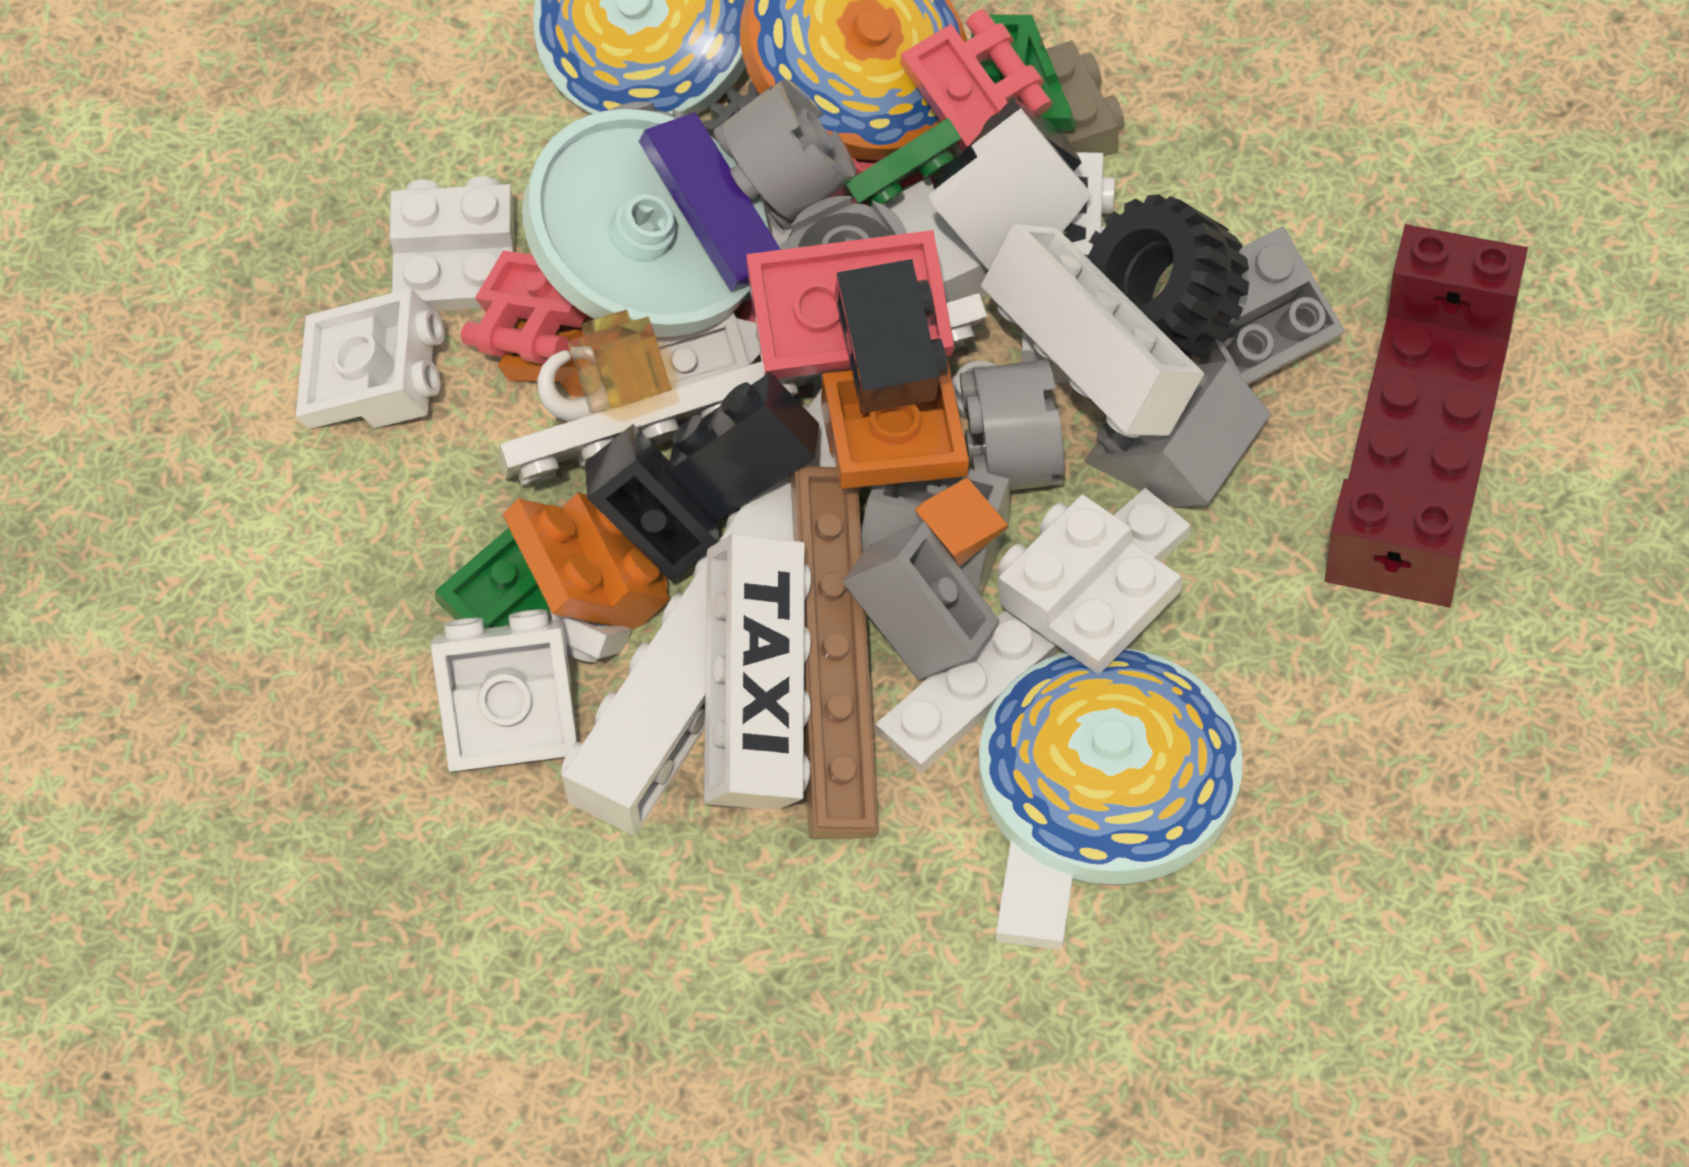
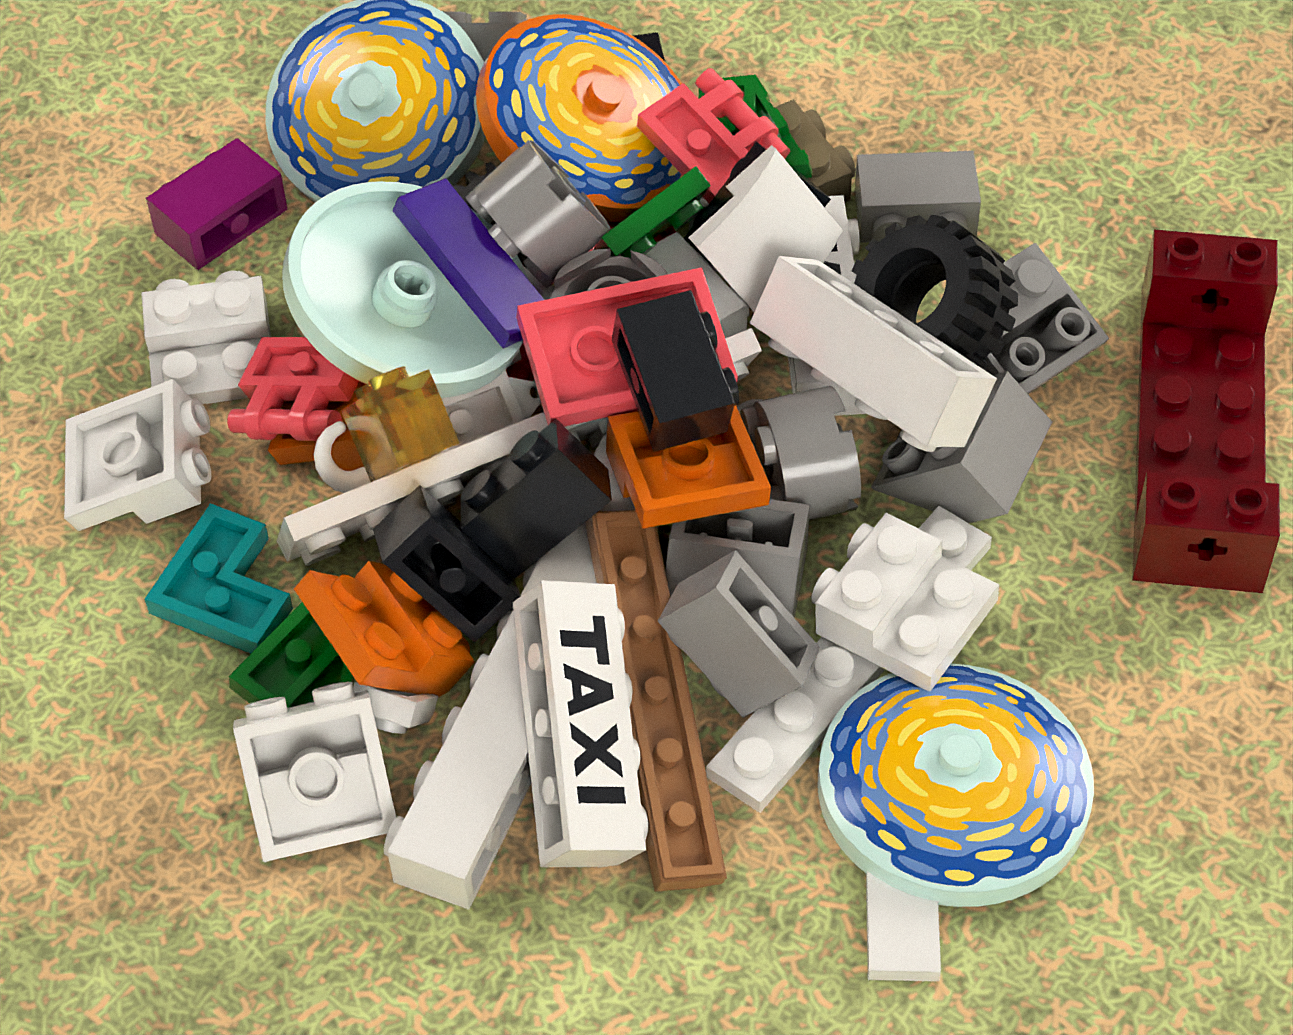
camera: 10 degrees left, 5 degrees down
(425, 500) = (208, 587): none -> teal plate
(476, 99) = (217, 203): none -> magenta brick
(961, 520) = (771, 547): orange slope -> none
(1182, 157) = (915, 184): none -> light grey brick

